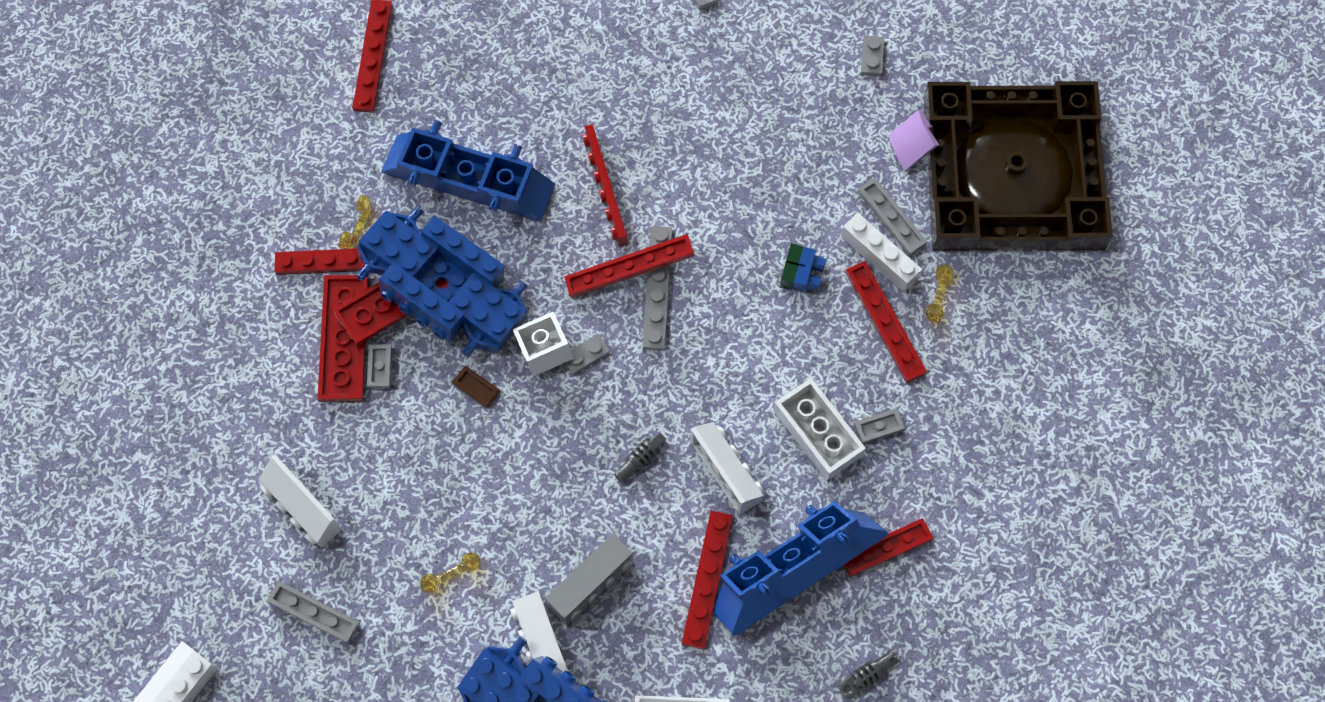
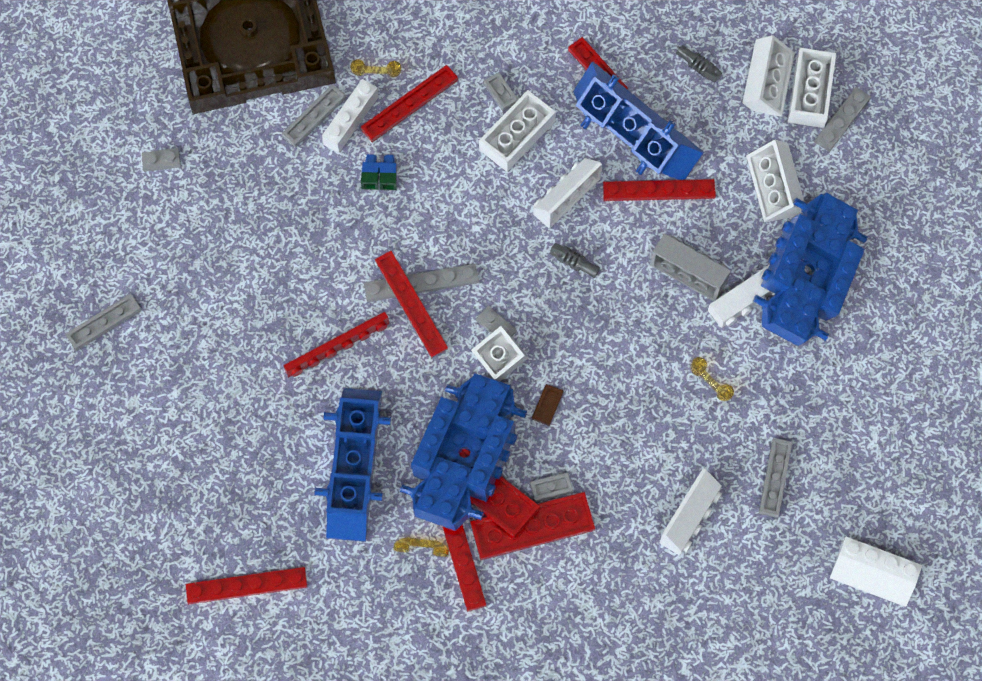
camera: 105 degrees left, 0 degrees up
(913, 140) = (242, 108): lavender slope -> none

